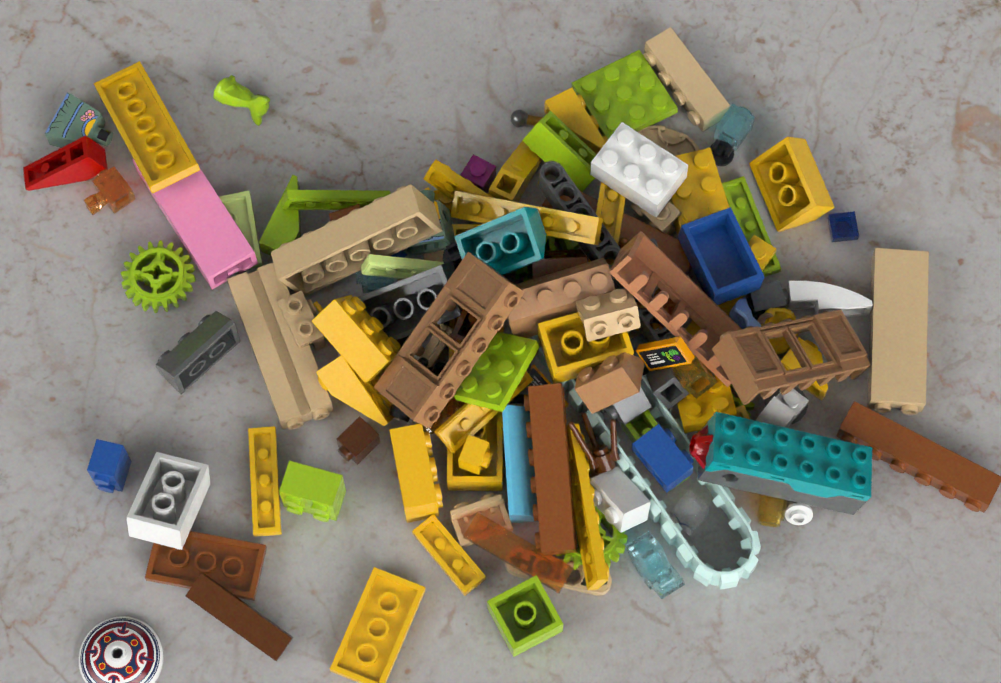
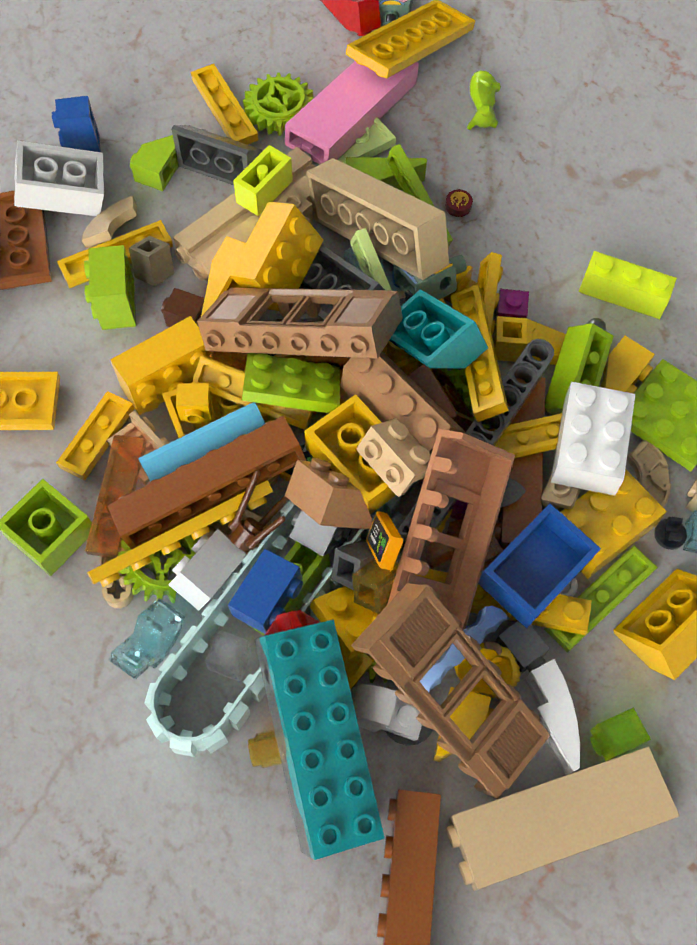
camera: 65 degrees right, 5 degrees down
(111, 190) = (337, 43): clear orange brick -> none
(133, 327) = (224, 105): none -> yellow plate
(176, 410) = (155, 163): none -> lime slope
(225, 475) = (108, 221): none -> tan tile
(268, 319) = (263, 180): none -> neon yellow brick
(294, 447) = (151, 260): none -> dark tan brick
(341, 169) = (458, 203): none -> dark red tile
(493, 74) = (627, 285): none -> neon yellow brick
(798, 513) = (275, 783): white plate -> none
(843, 226) = (657, 701): clear blue plate -> none
(857, 264) = (619, 735): none -> clear neon green brick

